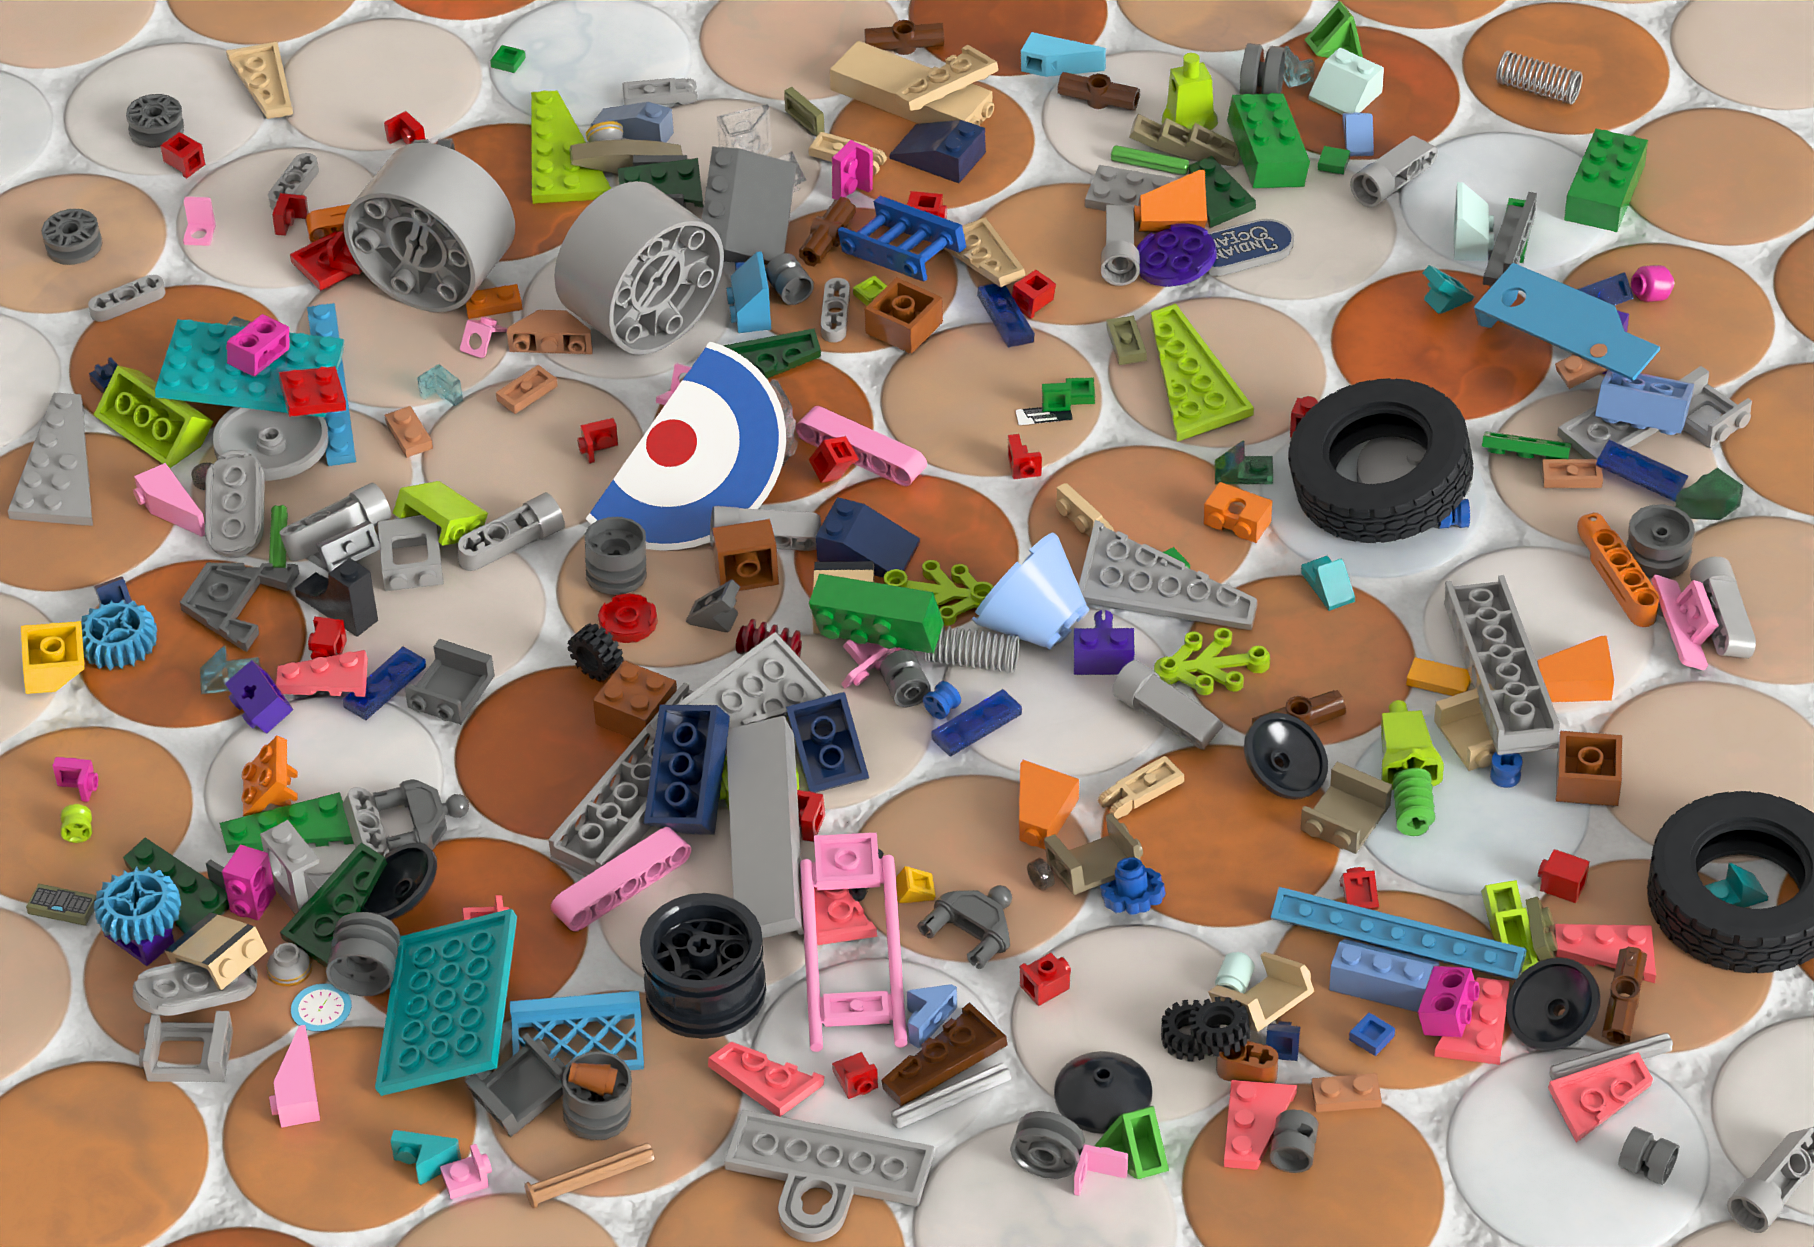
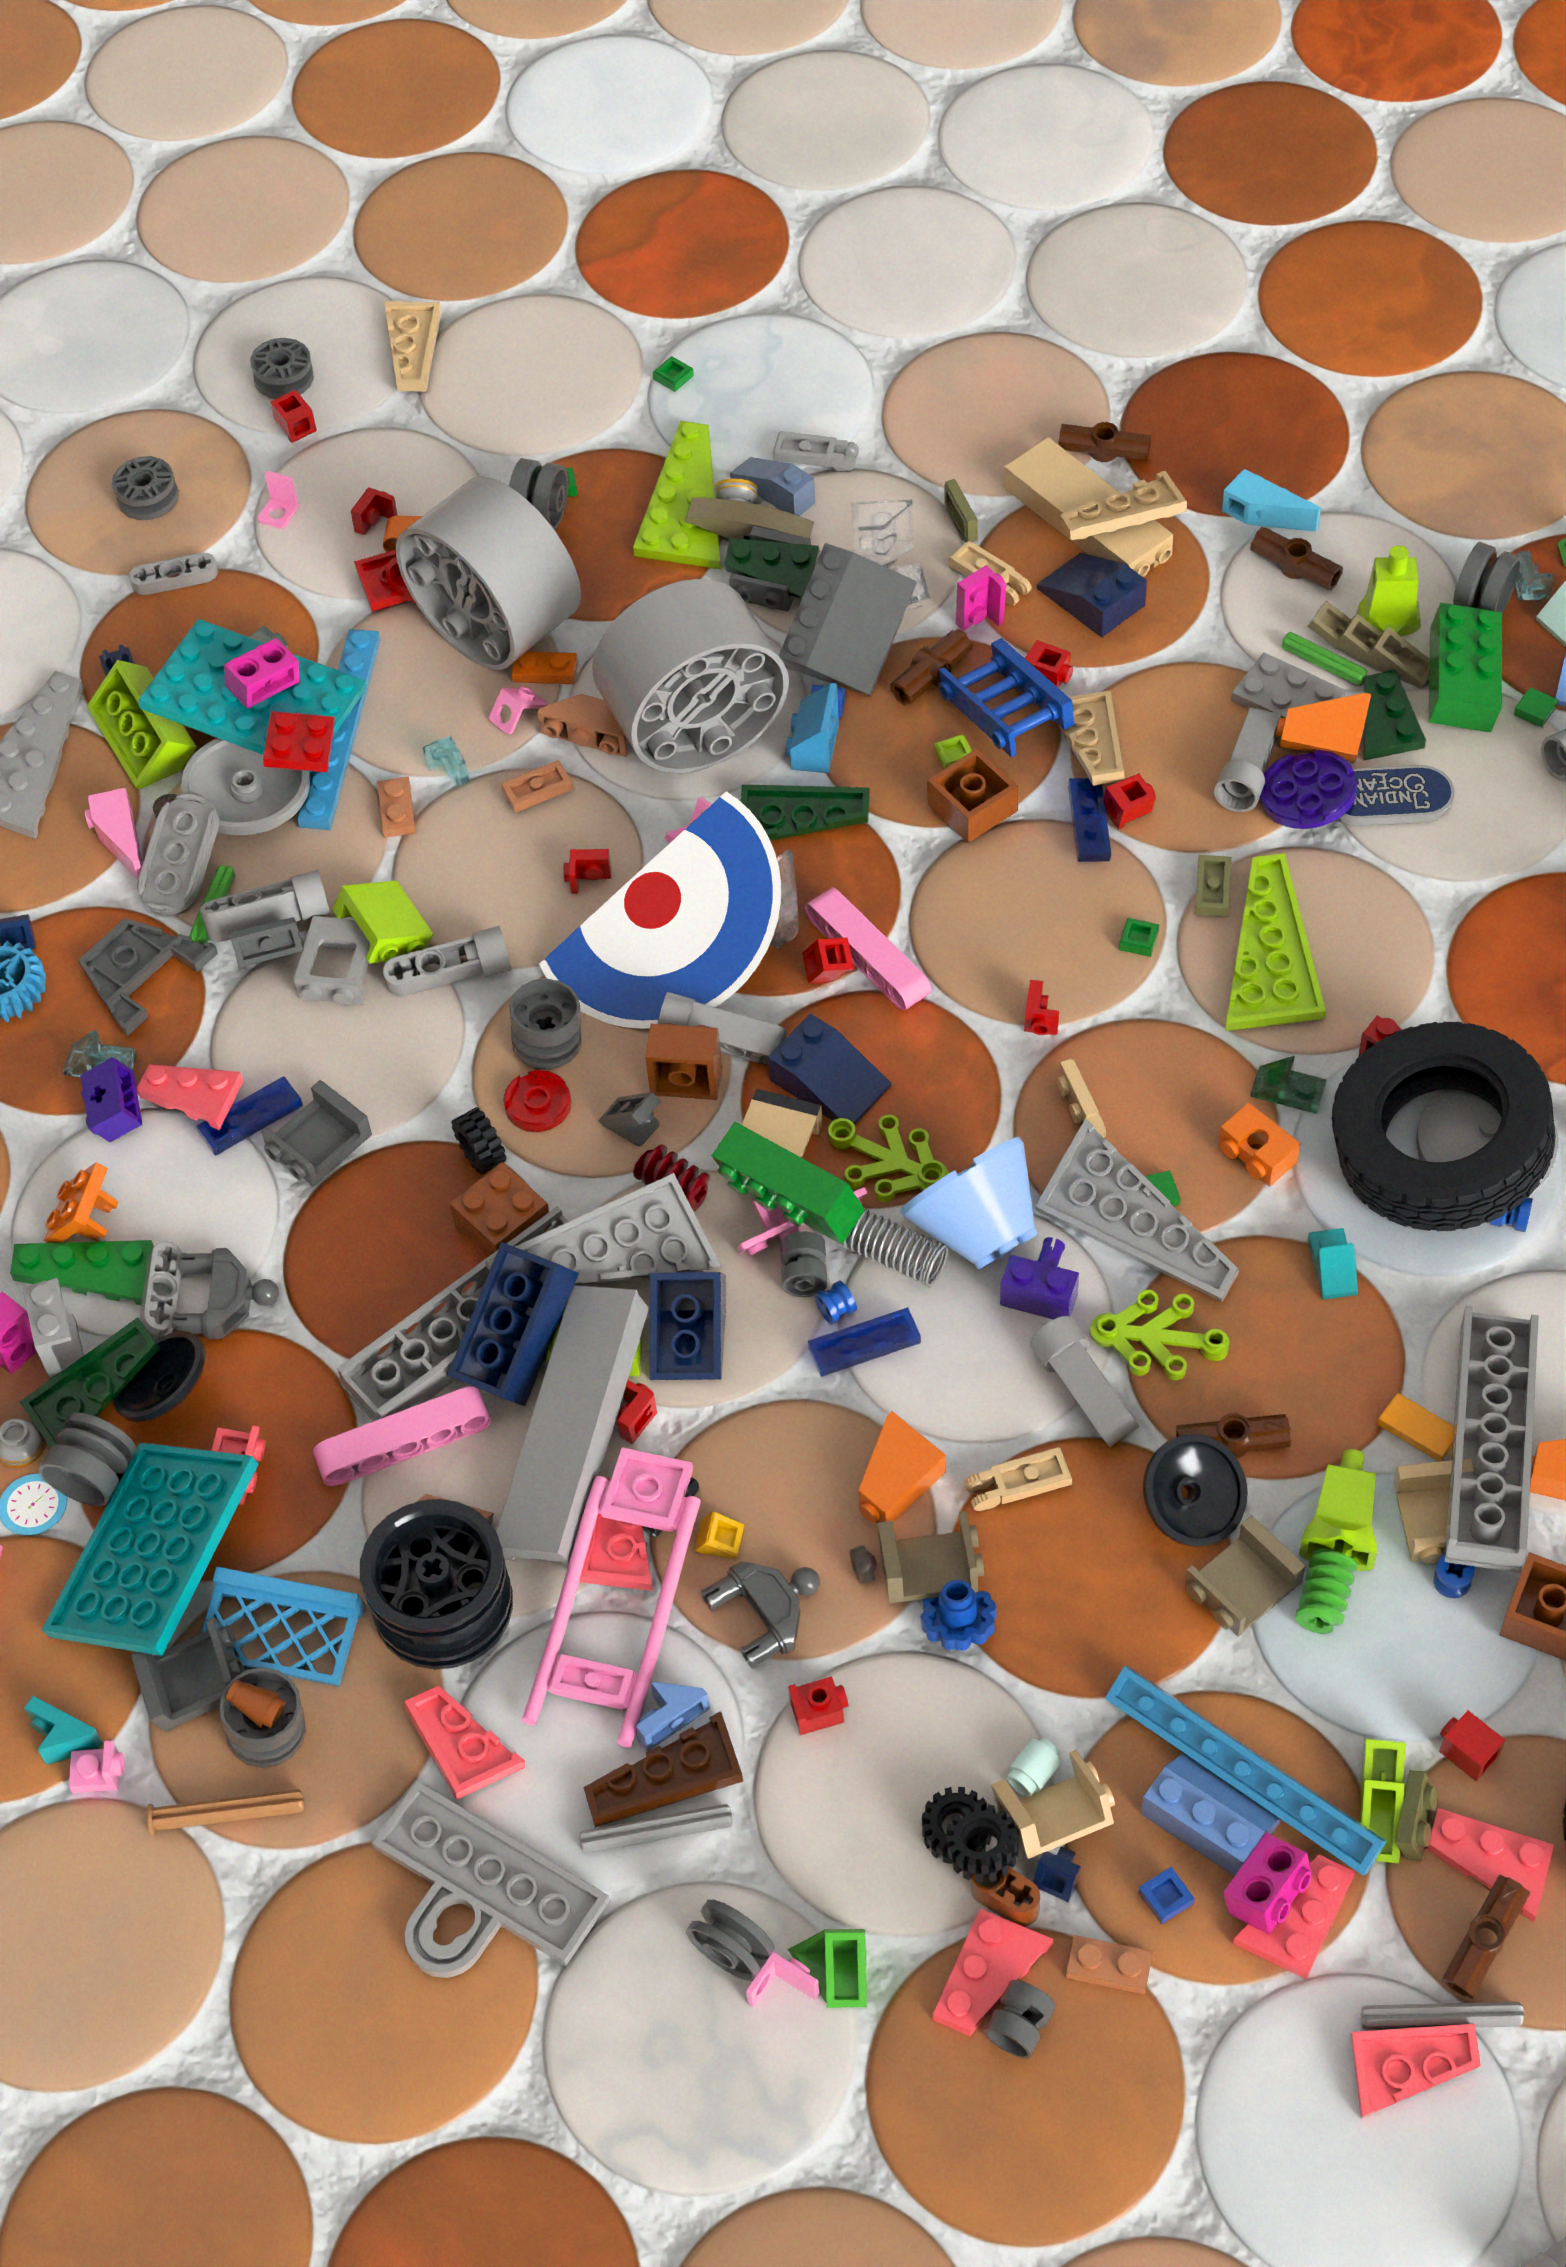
camera: 20 degrees right, 10 degrees up
(305, 162) = (409, 460): light grey beam -> none
(328, 637) = (210, 1046): red brick -> none
(342, 596) = (243, 999): black arch -> none
(403, 127) = (529, 434): red bracket -> none
(789, 279) = (866, 718): dark grey wheel -> none
(831, 301) = (905, 778): light grey beam -> none
(856, 1075) = (561, 1769): red bracket -> none
(1036, 416) = (1088, 956): sticker -> none
(1056, 397) = (1106, 941): green tile -> none
(1096, 1101) = (833, 1897): black dish -> none
(1360, 888) = (1220, 1693): red bracket -> none
(1542, 994) = (1375, 1914): black dish -> none
(1648, 1155) = (1437, 2174): dark grey wheel -> none

